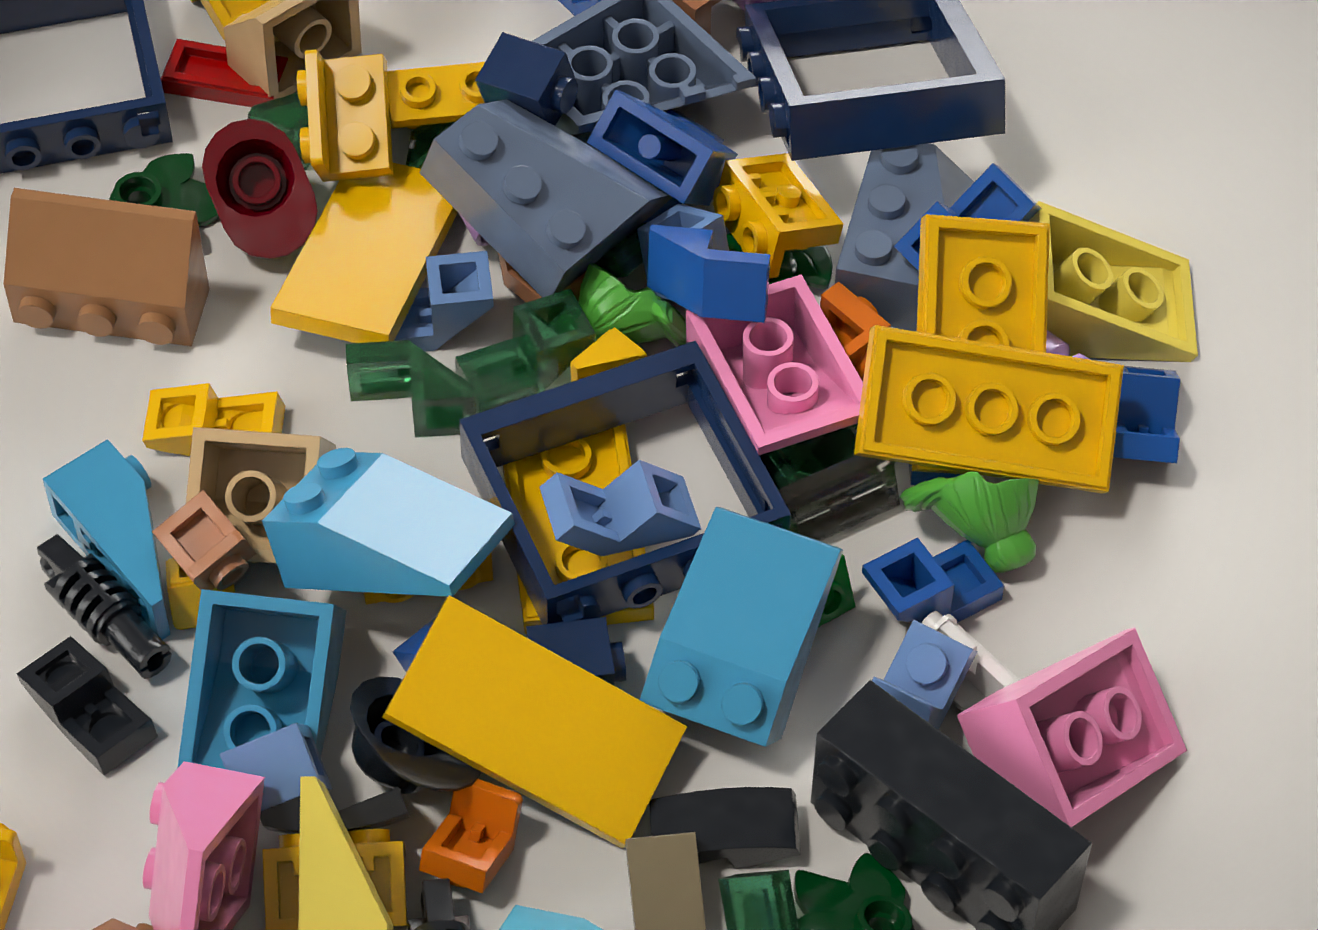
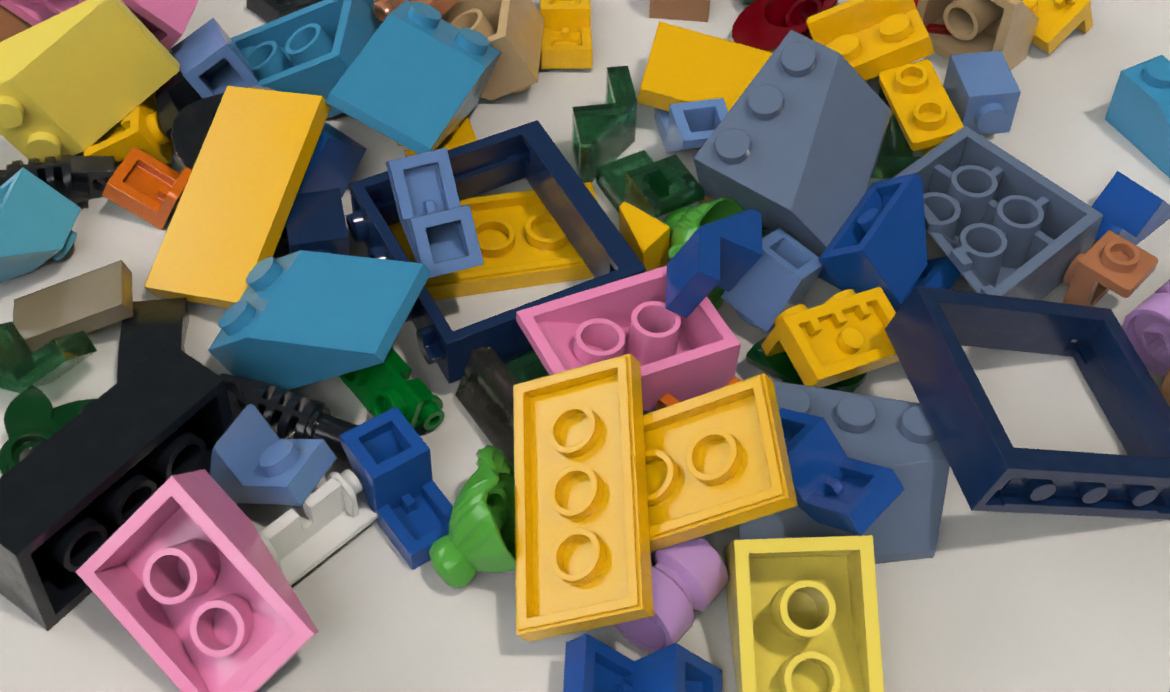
camera: 85 degrees right, 5 degrees down
(406, 40) = (982, 91): none -> medium blue brick
(529, 76) = (918, 123): dark blue brick -> none
(832, 683) = (287, 412): none -> black hinge

